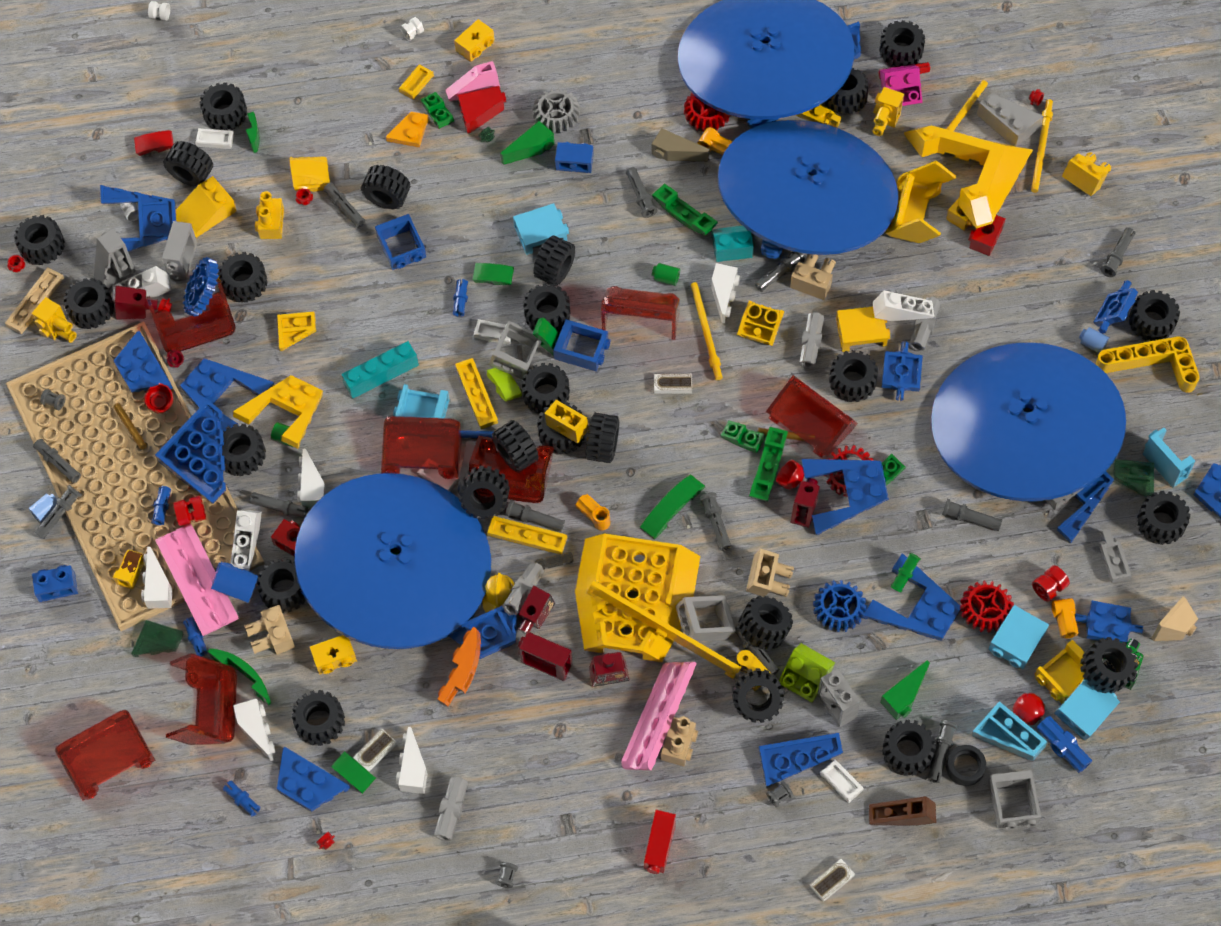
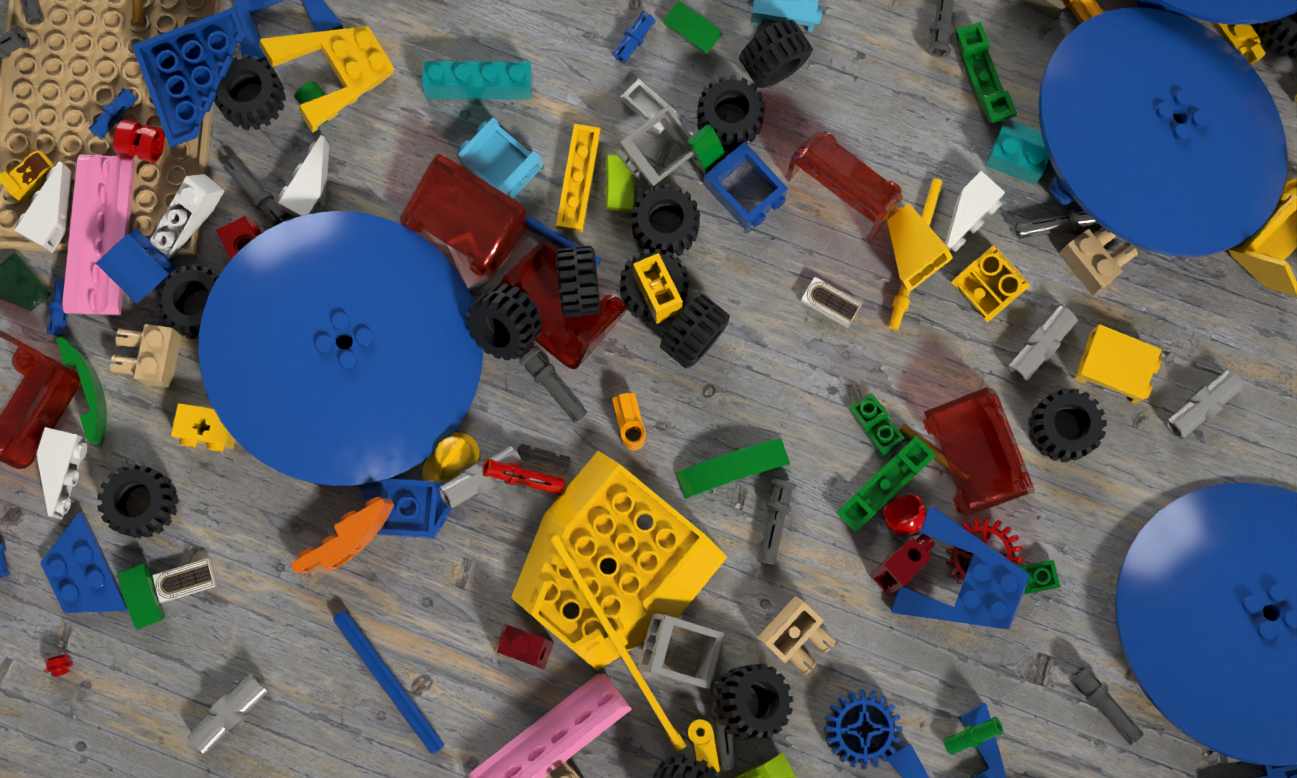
camera: 25 degrees right, 15 degrees up
(413, 770) = (215, 631): white slope -> none
(527, 535) = (530, 404): yellow plate -> none
(538, 603) = (488, 508): dark red torso -> none
(538, 738) = (388, 682): none -> blue axle
(543, 574) = (495, 470): none -> red pin
(545, 656) = (452, 583): dark red window -> none
(666, 274) = (909, 148): green brick -> none
(704, 323) = (915, 247): none -> yellow slope
(898, 307) = (1186, 368): white slope -> none
(902, 371) = (1135, 452): blue plate -> none

